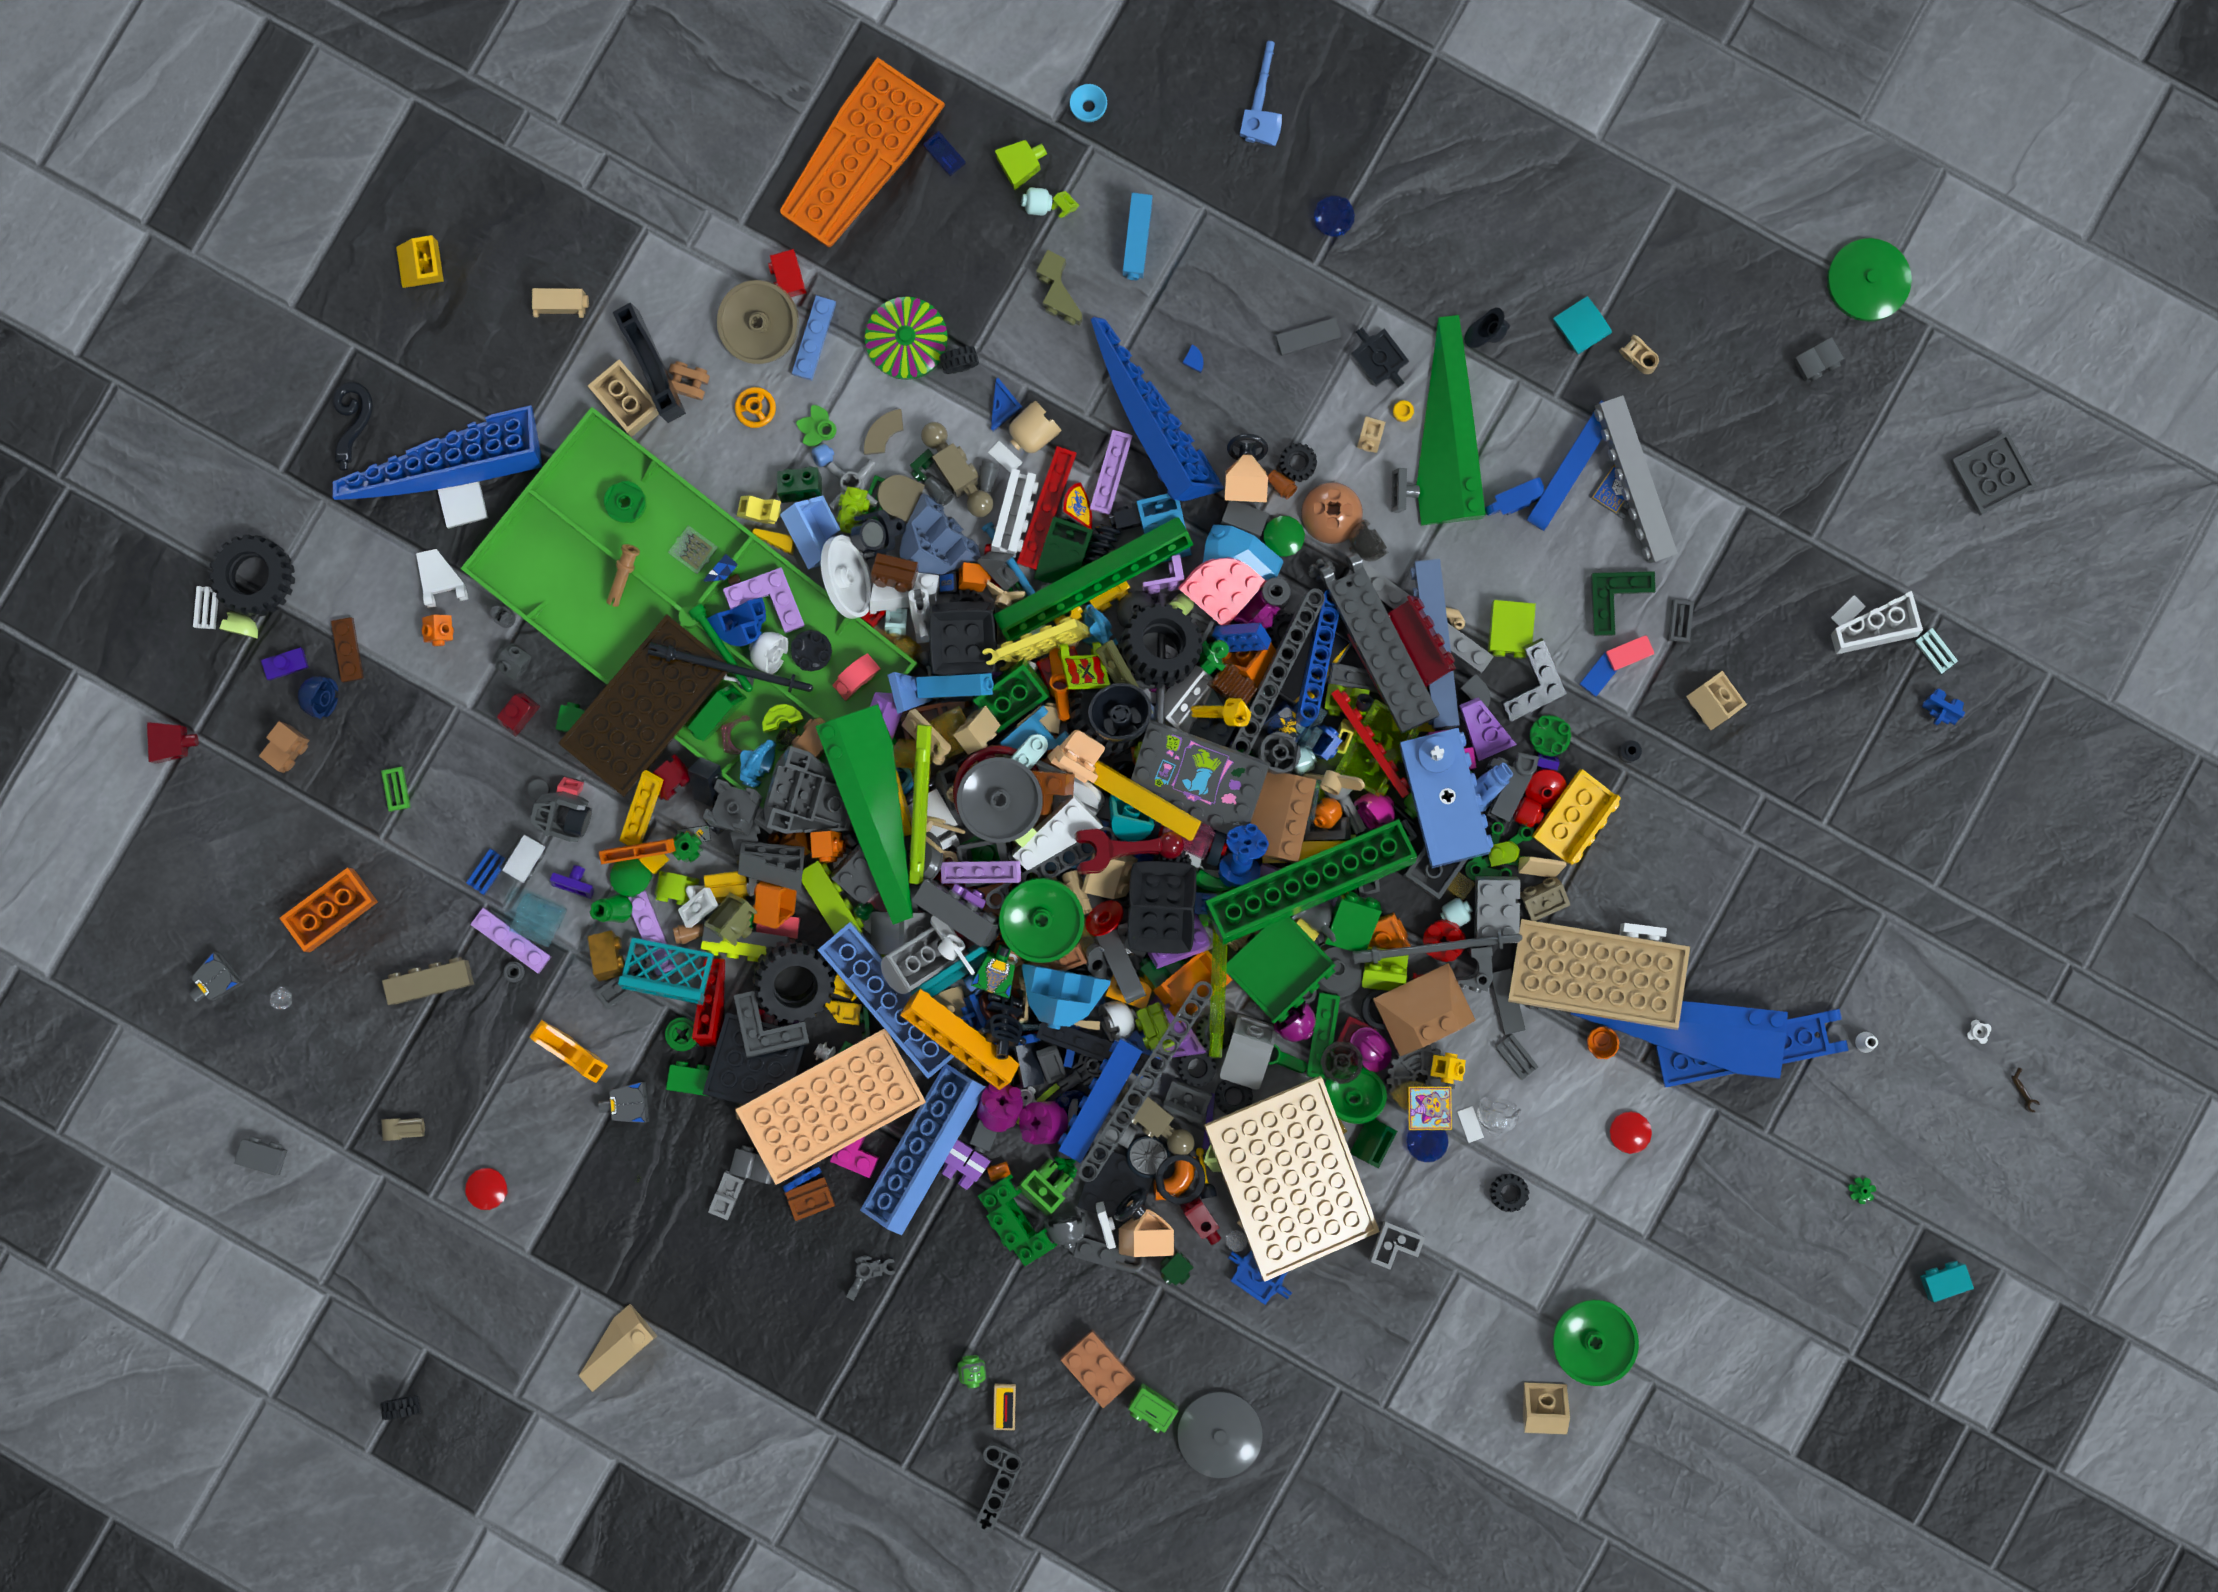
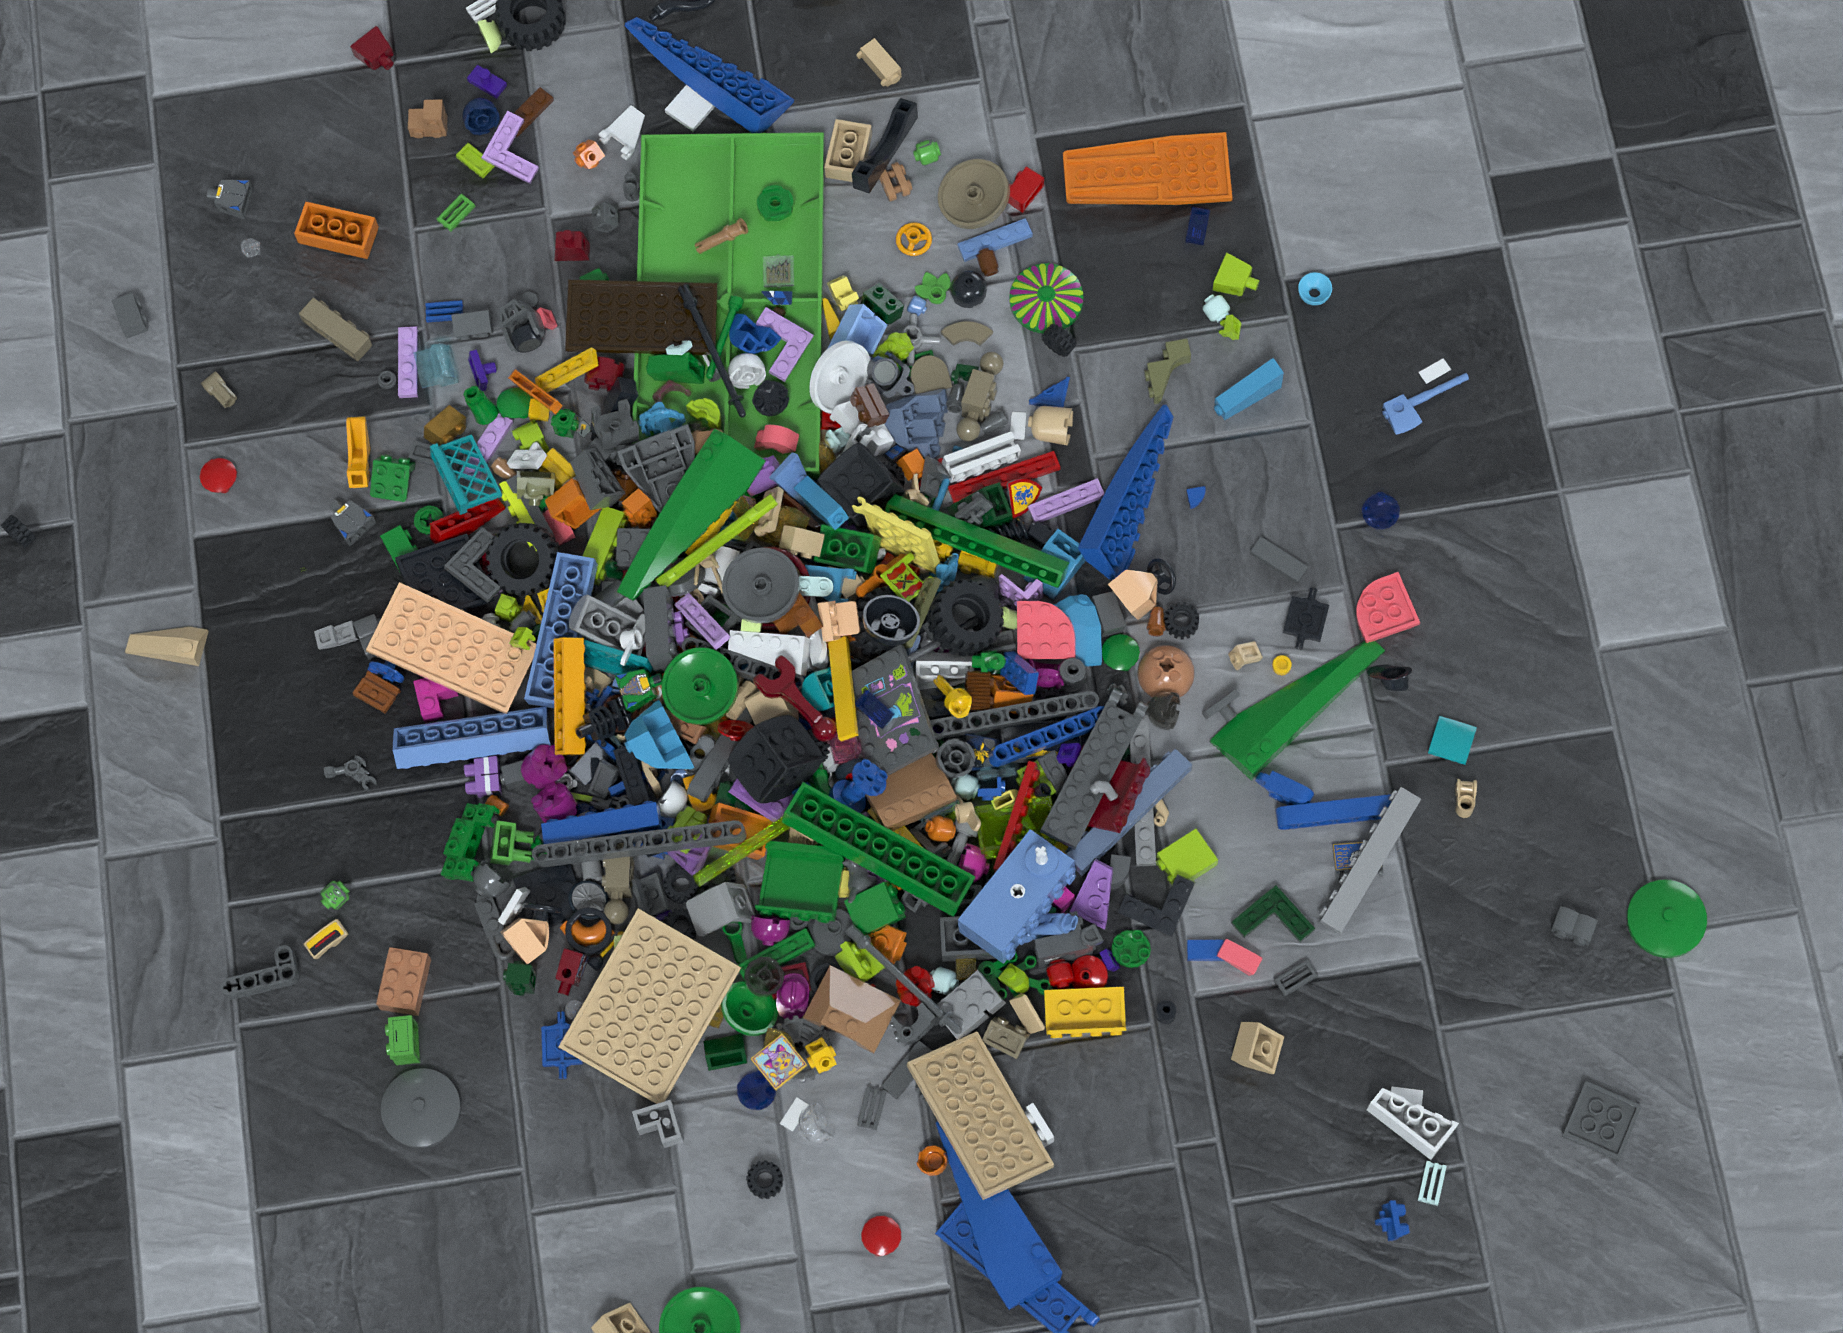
camera: 50 degrees right, 15 degrees down
(357, 733) = (472, 158): none -> lime tile
(370, 709) = (498, 153): none -> lavender plate
(614, 1037) = (391, 478): none -> green bracket
(682, 330) = (927, 152): none -> bright green head
(706, 696) = (680, 349): none -> light aqua tile
(824, 1027) = (507, 608): none -> lime brick
(832, 361) = (987, 262): none -> reddish brown brick
(846, 406) = (968, 289): none -> black cylinder
(850, 1026) = (524, 619): none -> dark grey brick
(870, 1040) = (520, 638): none -> lime tile
(1065, 558) = (974, 510): none -> dark grey hips
(1186, 788) = (874, 709): none -> clear blue tile
(1242, 65) = (1434, 371): none -> white sticker
(1345, 653) = (1069, 753): none -> dark purple tile
(1406, 649) = (1104, 787): none -> light grey arm
(1424, 285) = (1385, 609): none -> coral plate

